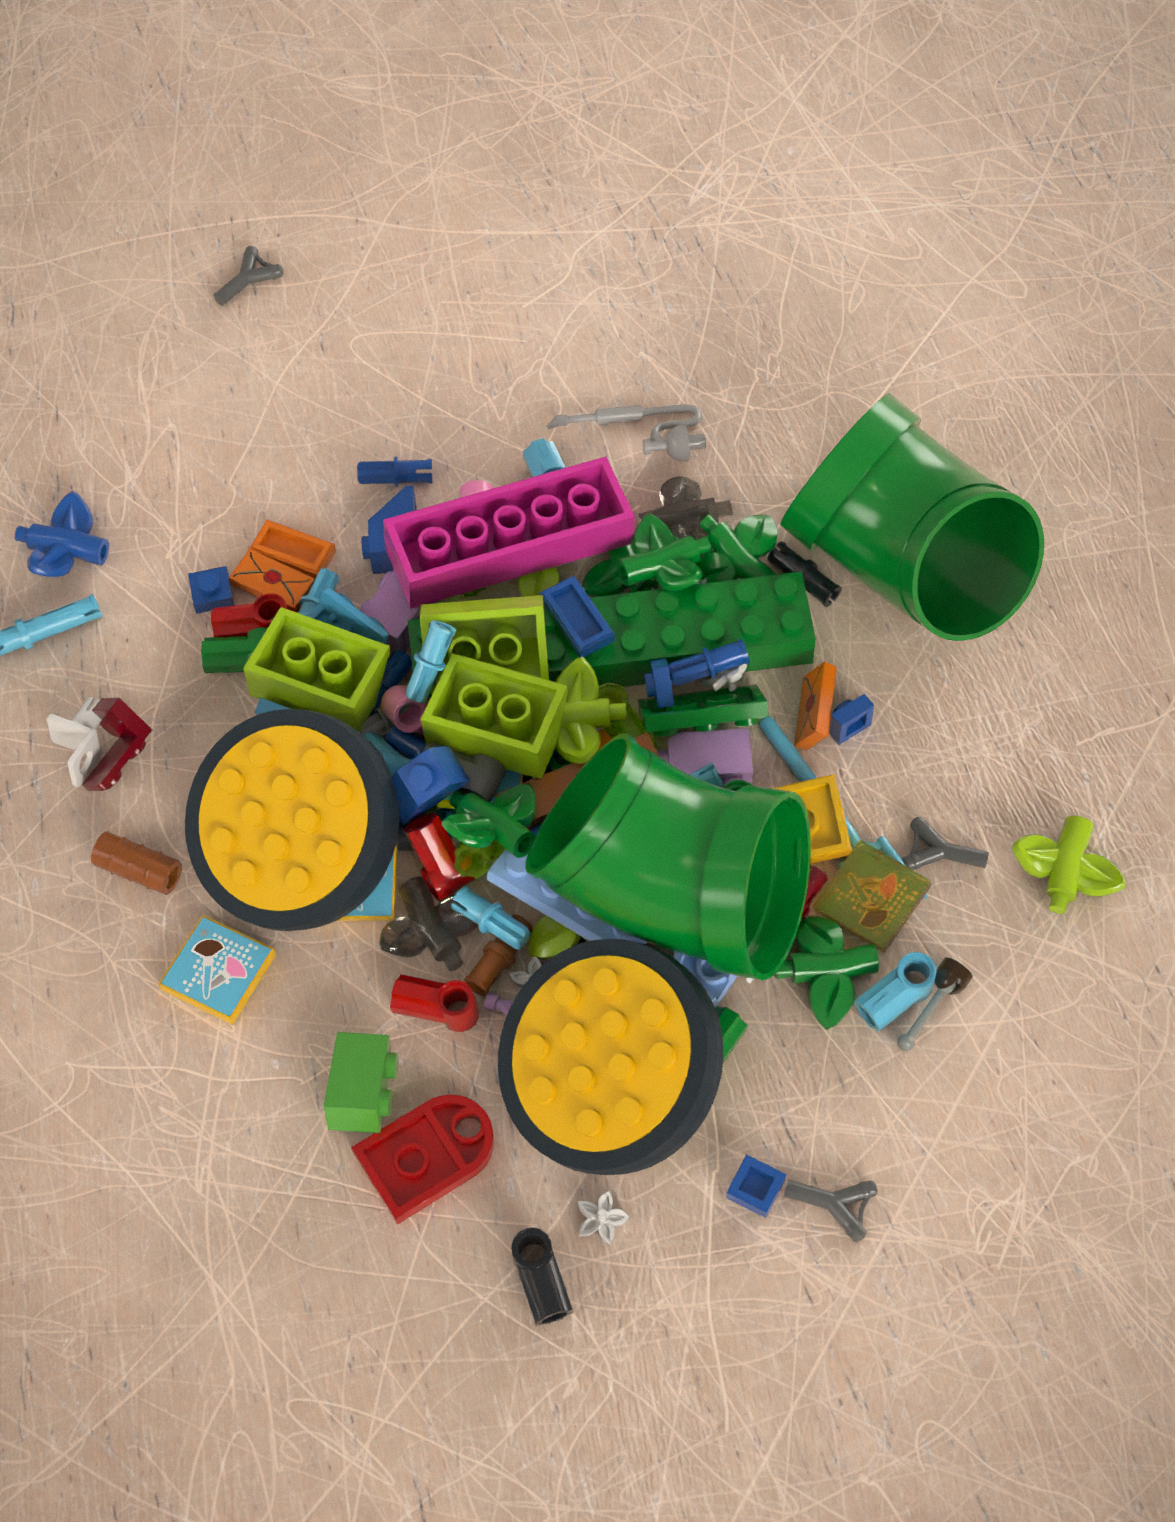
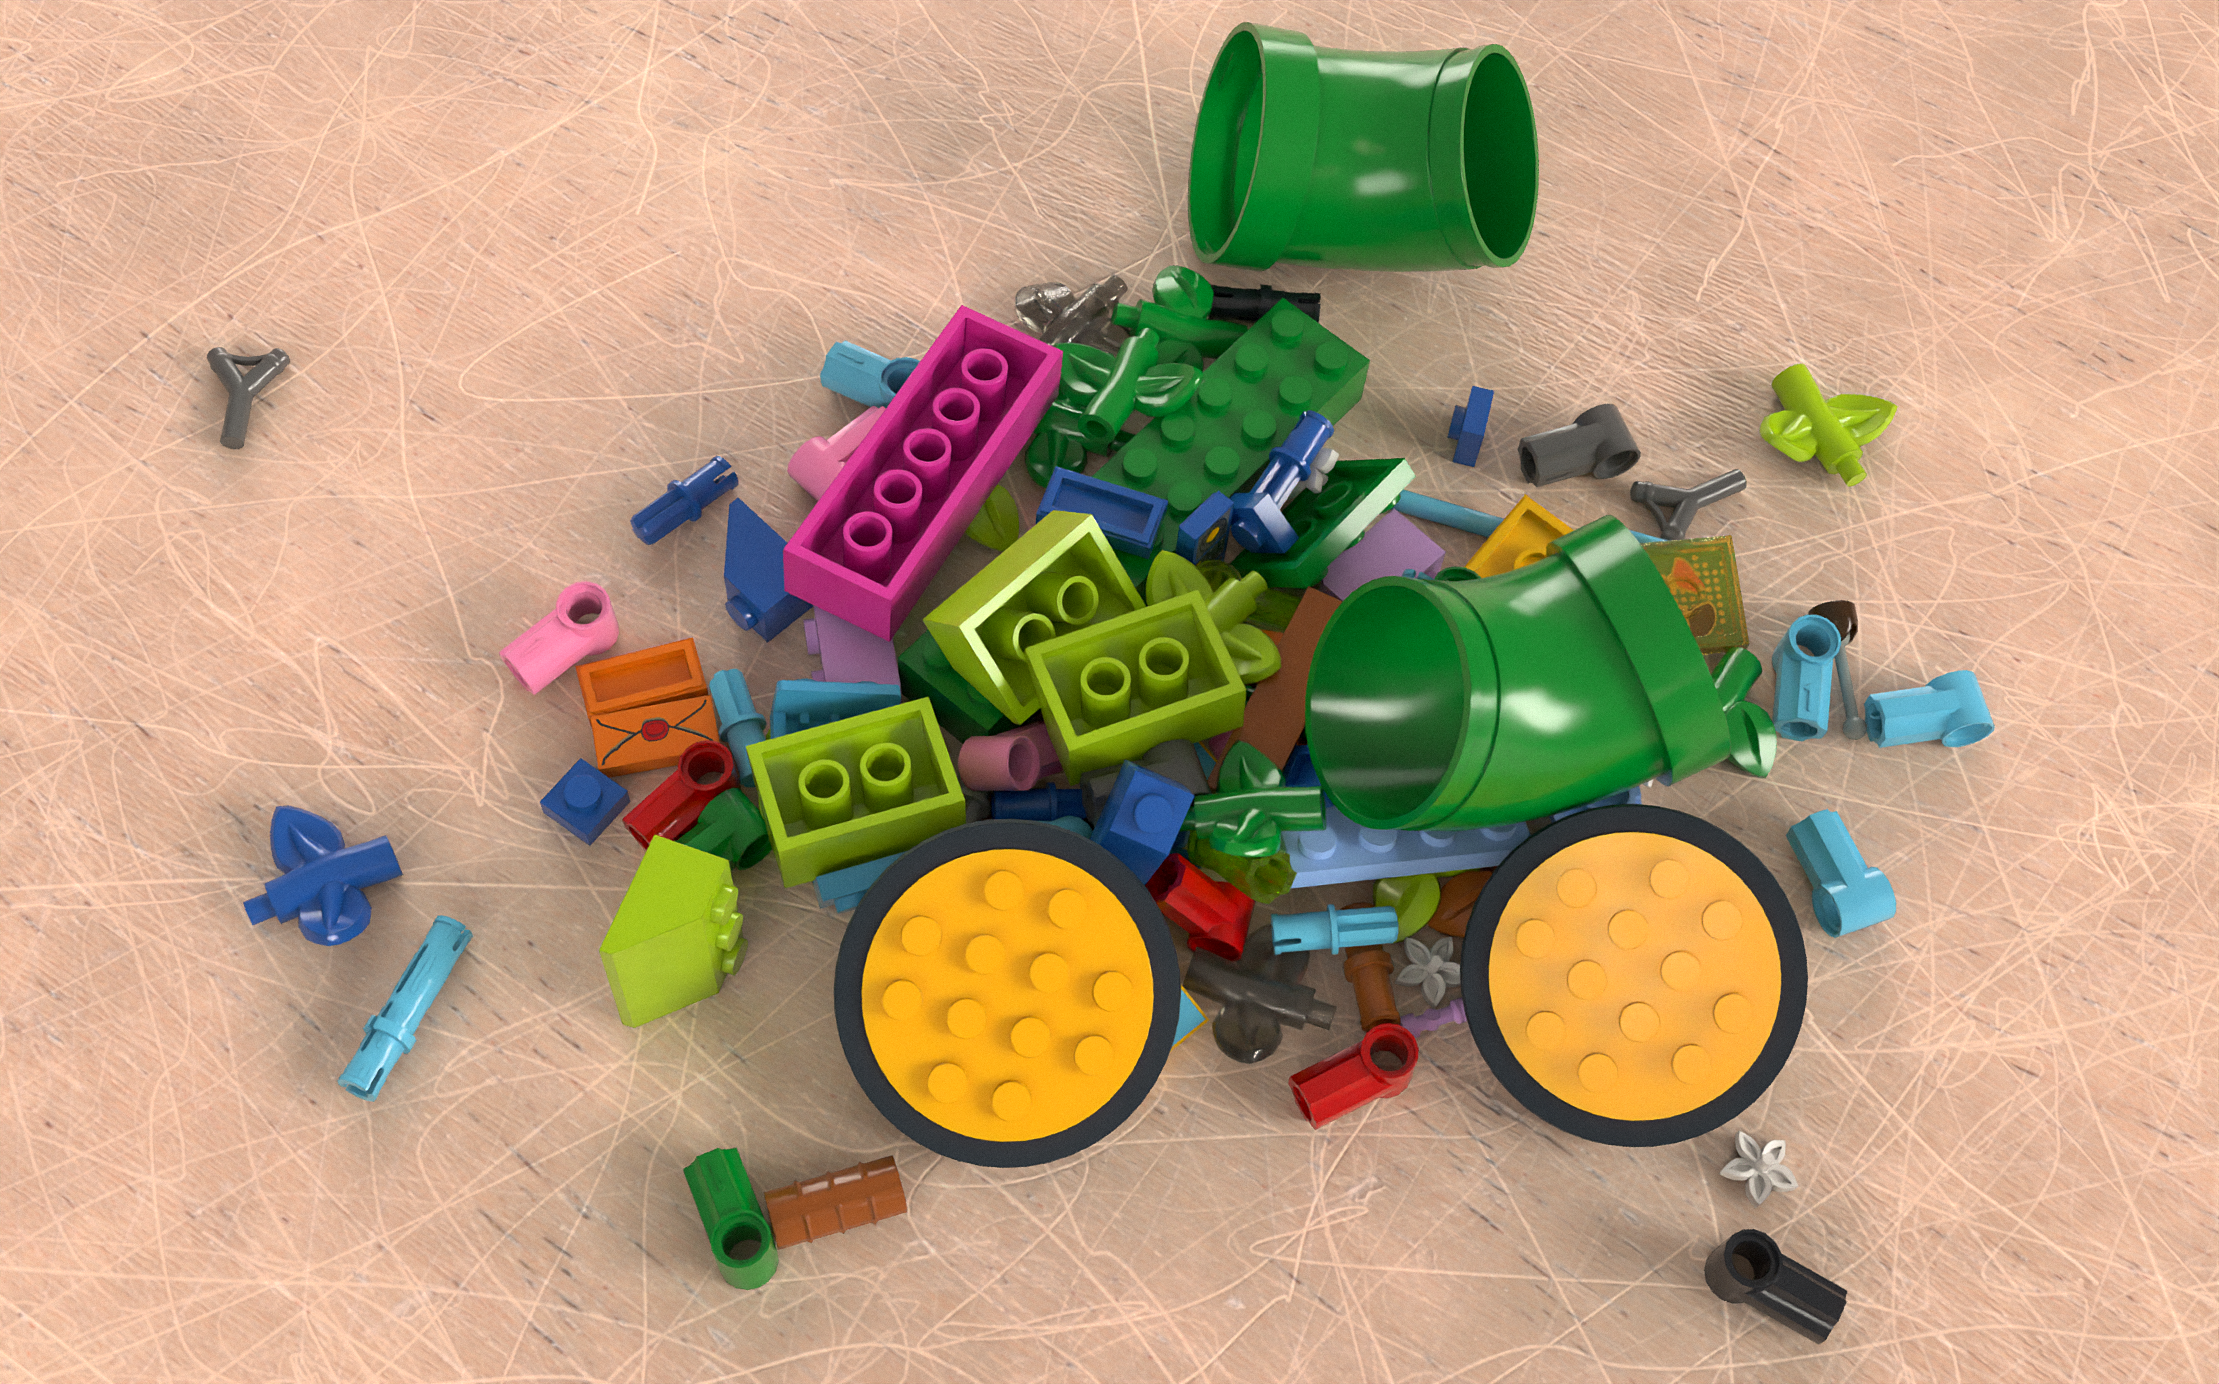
camera: 50 degrees left, 0 degrees up
(79, 736) = (596, 1101): white bracket -> none
(87, 823) = (731, 1216): none -> green piece
(120, 722) = (672, 1059): dark red bracket -> none
(165, 674) = (673, 933): none -> lime slope
(217, 969) = (1061, 1250): tile -> none
(273, 500) = (559, 641): none -> bright pink piece
(359, 1082) = (1375, 1238): bright green brick -> none
(424, 1155) = (1510, 1263): red tile -> none
(429, 661) = (1011, 676): medium azure axle -> none
(625, 668) = (1206, 530): none -> blue tile
(677, 440) = (989, 250): light grey piece -> none
(756, 1186) = (1877, 997): blue plate -> none
(800, 1117) = (1844, 889): none -> medium azure piece
(815, 706) = (1424, 438): orange tile -> none
(836, 1202) = (1960, 951): dark grey piece -> none
(914, 778) = (1593, 443): none -> dark grey piece
(966, 1072) = (1944, 709): none -> medium azure piece

